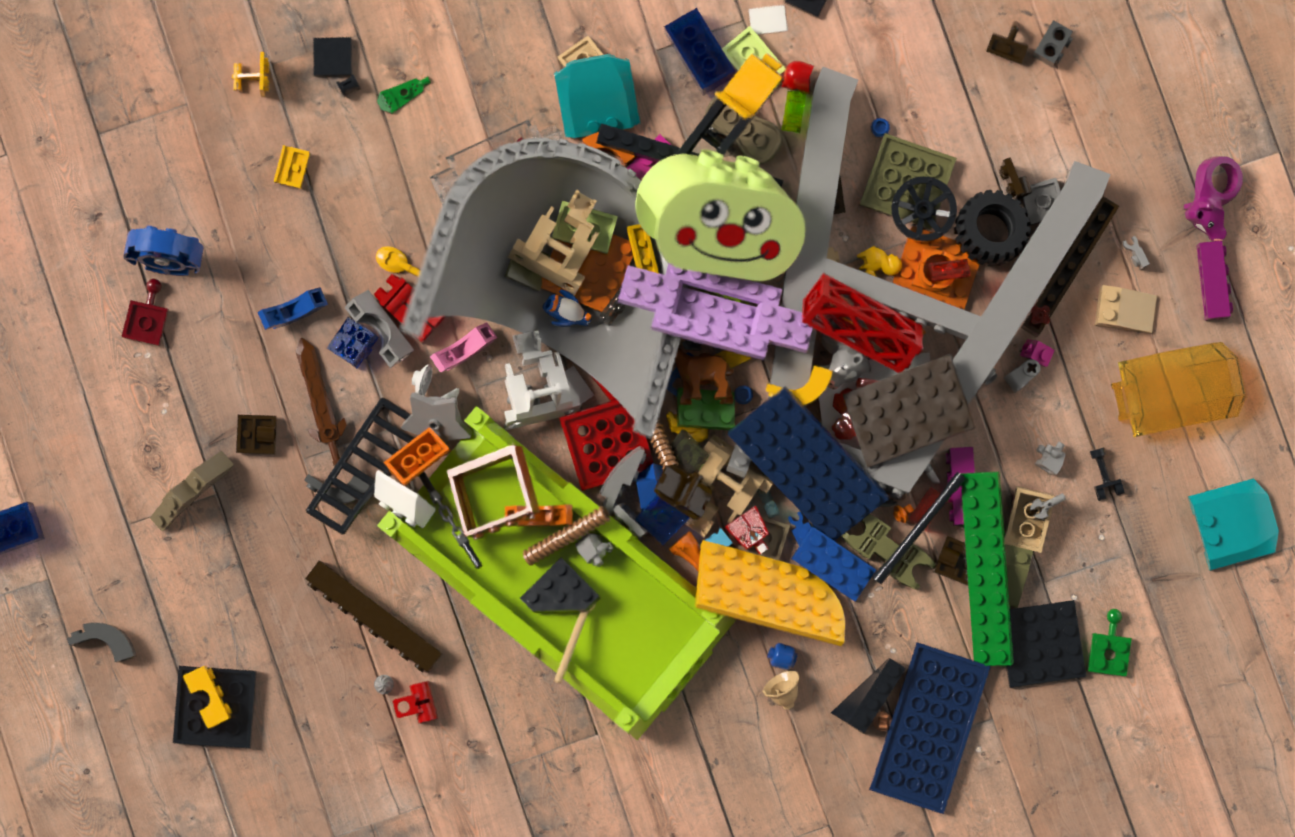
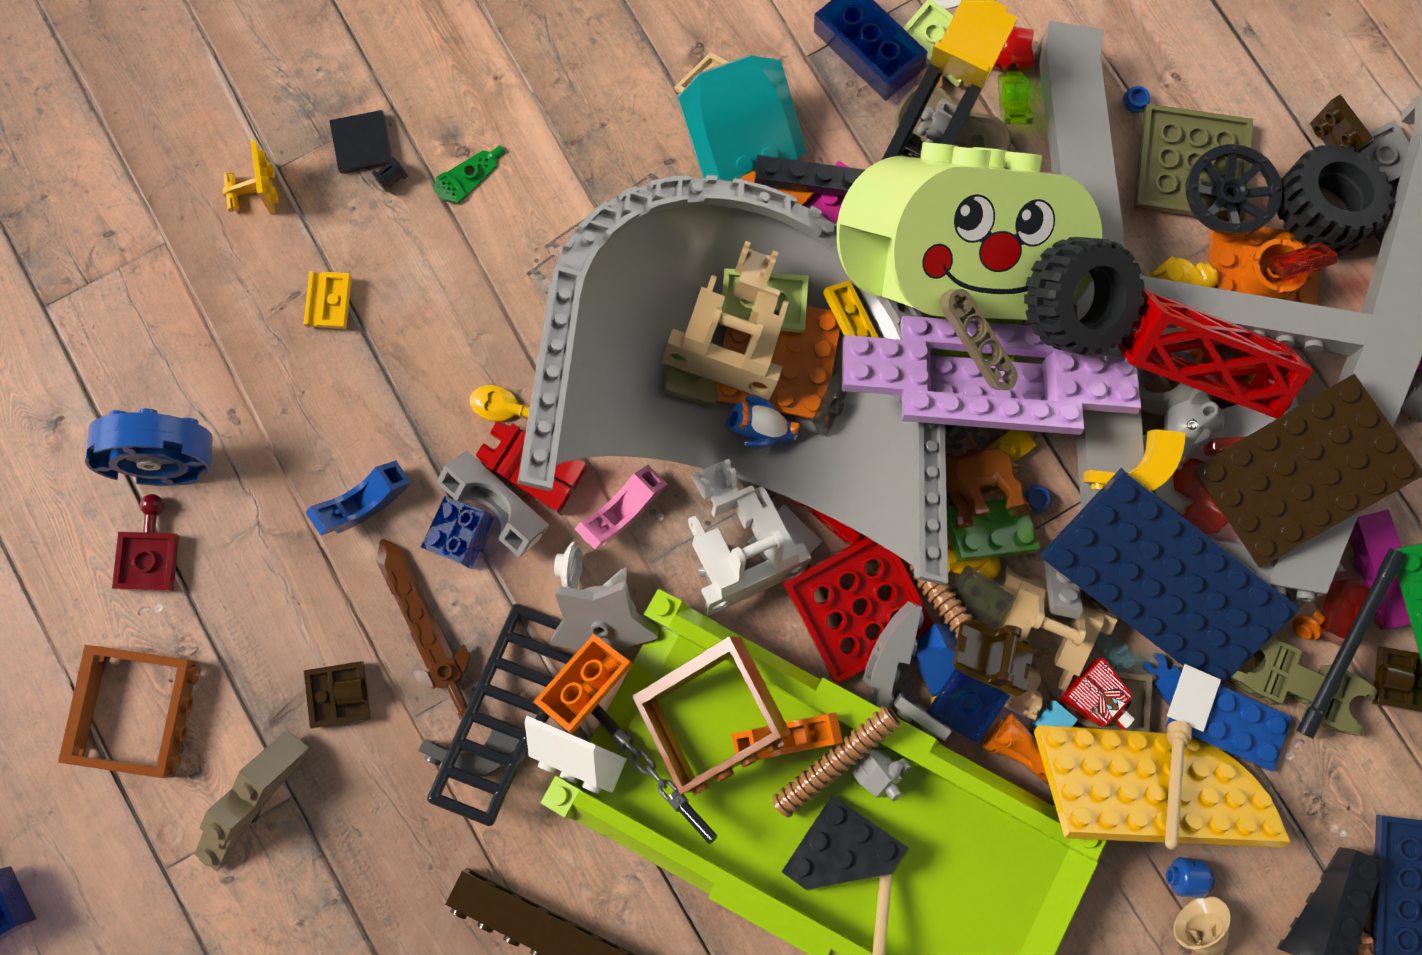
camera: 15 degrees left, 5 degrees down
(92, 410) = (84, 704): none -> dark orange window
(706, 288) = (975, 343): none -> dark tan beam
(733, 118) = (939, 123): none -> light grey piece
(793, 566) = (1178, 735): none -> tan piece
(797, 287) = (1114, 301): none -> black tyre
(810, 543) = (1193, 697): none -> white sticker

